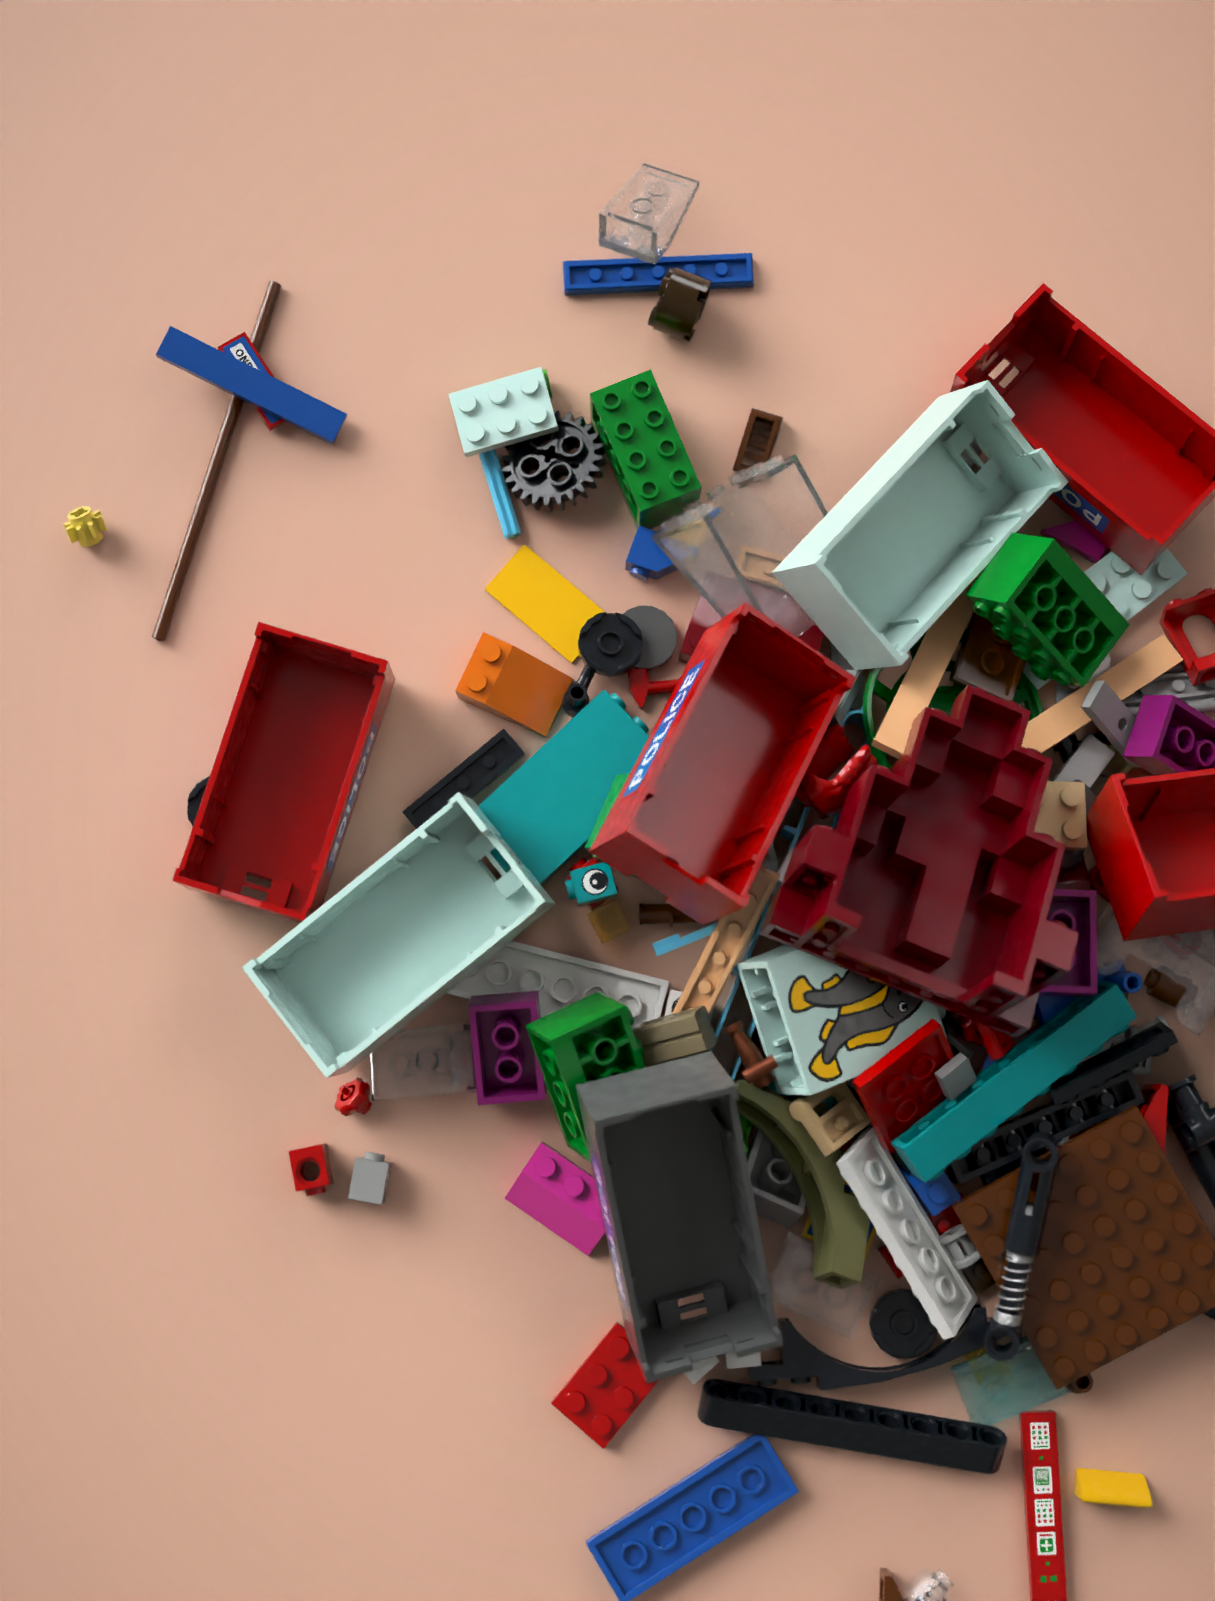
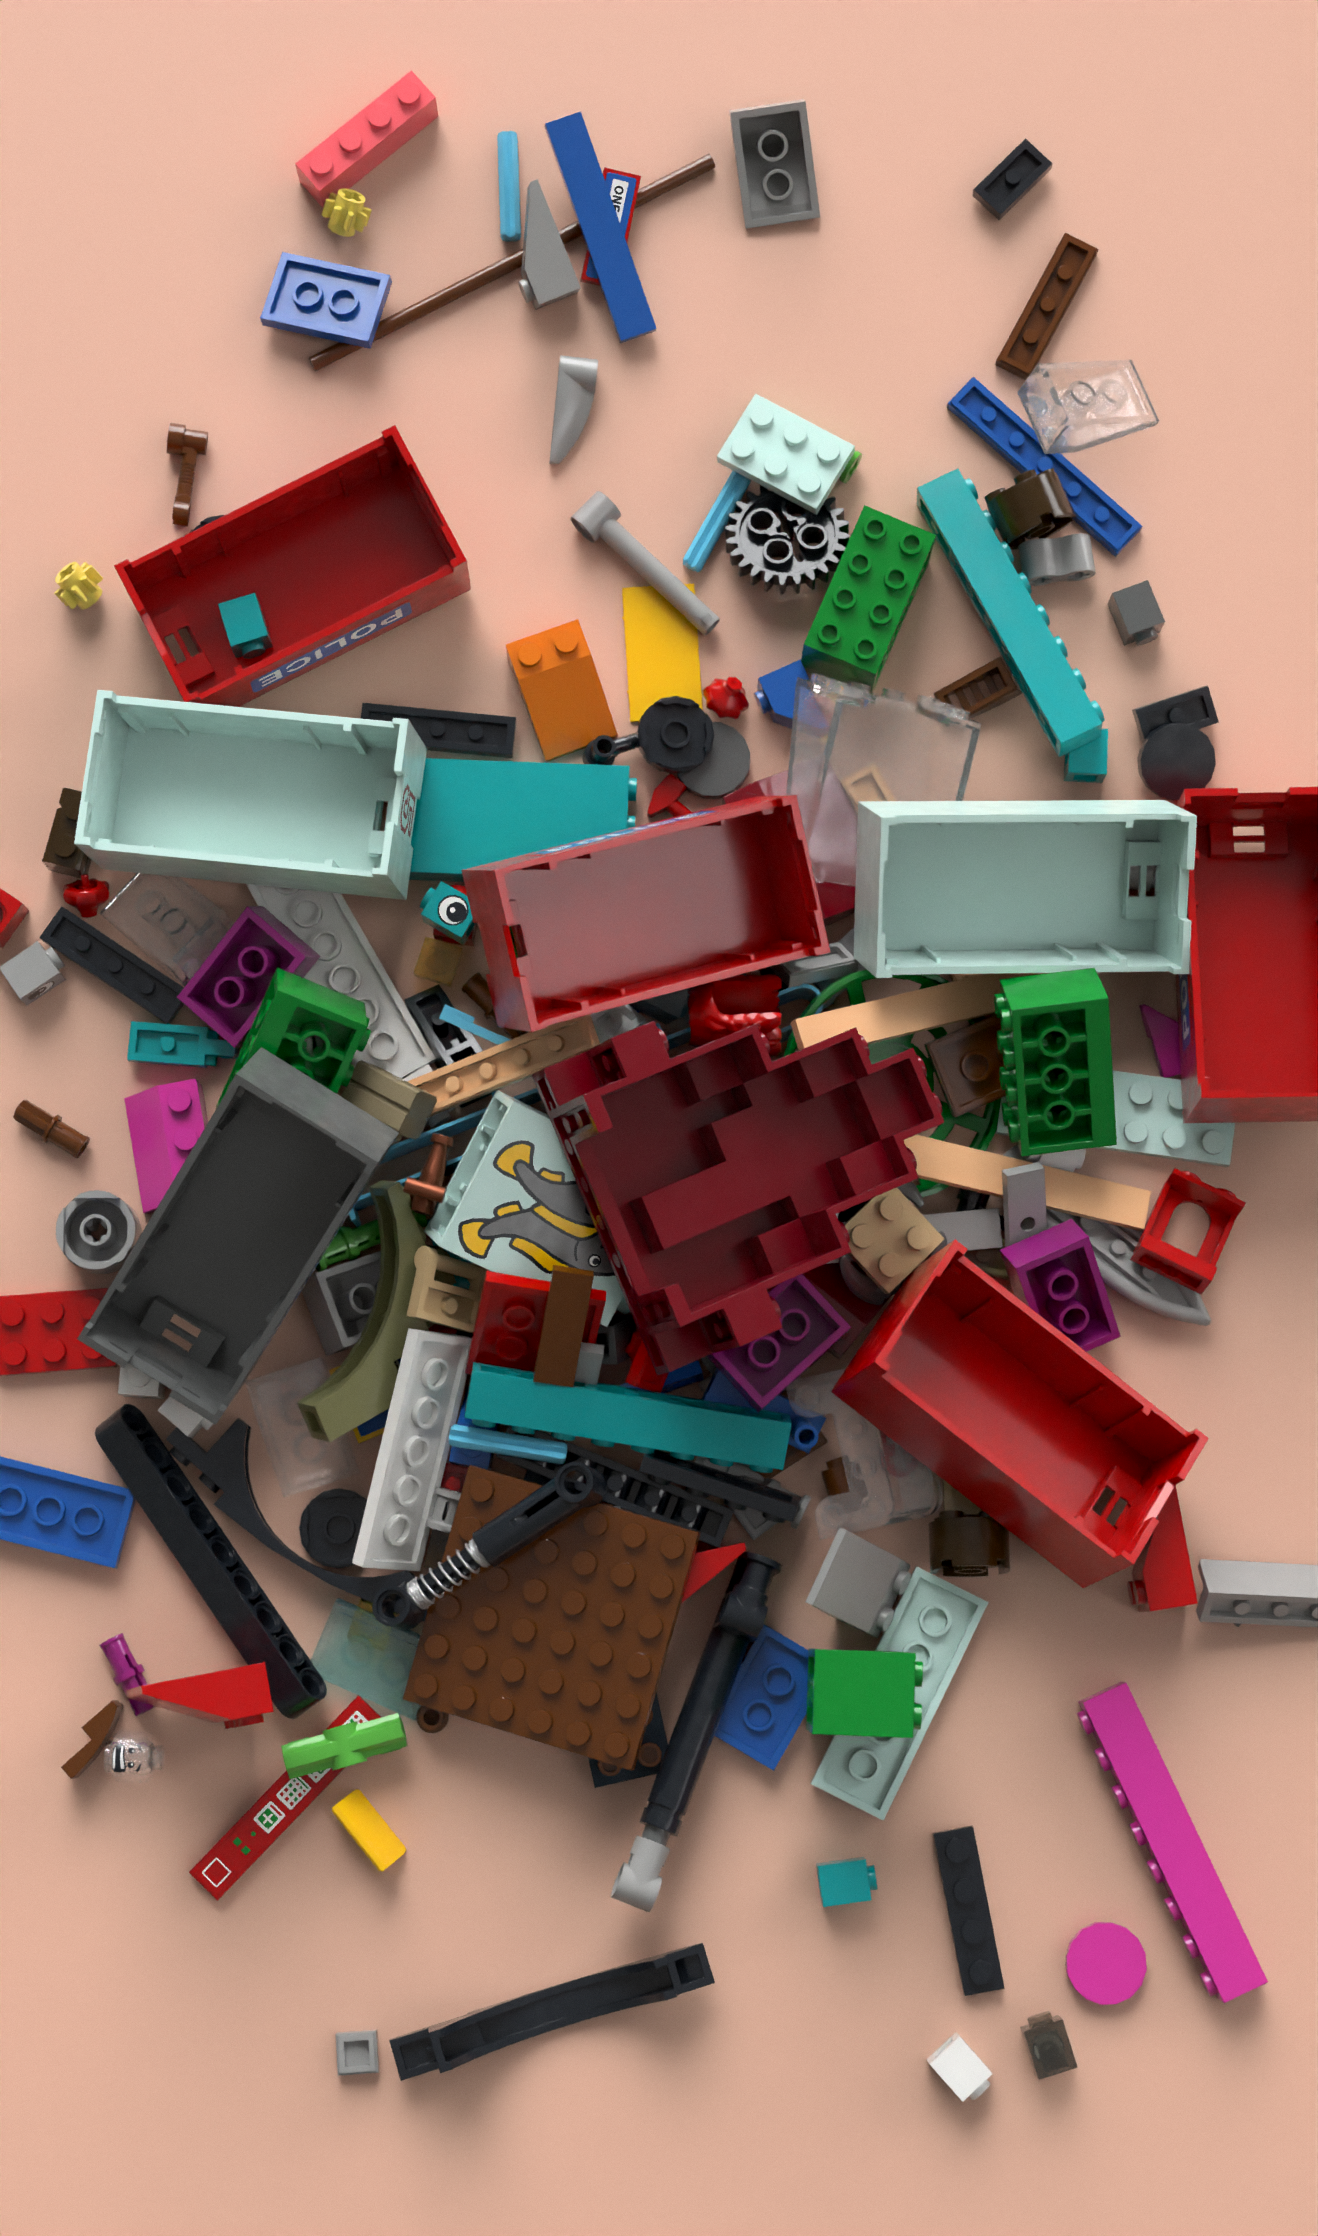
camera: 45 degrees right, 0 degrees up
(52, 469) = (367, 138): none -> coral brick
(127, 591) = (326, 300): none -> plate
(133, 761) = (188, 444): none -> reddish brown brick
(153, 914) = (78, 585): none -> light yellow gear
(168, 416) = (509, 186): none -> medium azure axle
(237, 437) = (545, 263): none -> light grey slope
(284, 836) = (245, 626): none -> teal brick
(305, 1073) = (61, 852): none -> dark brown brick
(315, 247) = (774, 163): none -> light grey slope
(340, 506) = (572, 404): none -> light grey piece
(415, 1123) = (113, 965): none -> black plate
(430, 561) = (599, 519): none -> light grey piece
(465, 124) = (1012, 179): none -> black plate
(479, 1263) = (51, 1128): none -> reddish brown axle
(503, 1133) = (177, 1045): none -> teal hinge
(562, 180) = (1047, 306): none -> reddish brown tile
(577, 1317) = (84, 1216): none -> light grey brick
(616, 592) = (726, 697): none -> red piece
(639, 956) = (444, 1039): none -> black slope
(723, 320) = (1057, 559): none -> light grey axle
(733, 376) = (1009, 612): none -> teal brick
(803, 306) = (1136, 614): none -> dark grey brick
(858, 416) = (1088, 761): none -> teal brick
(873, 1546) = (126, 1669): none -> magenta pin
(886, 344) = (1190, 708): none -> black plate
(915, 369) = (1176, 760): none -> black tile
(931, 1066) = (563, 1326): none -> reddish brown tile
(948, 1513) = (229, 1695): none -> red slope
(961, 1170) = (507, 1444): none -> medium azure axle
(1049, 1454) = (344, 1745): none -> bright green piece

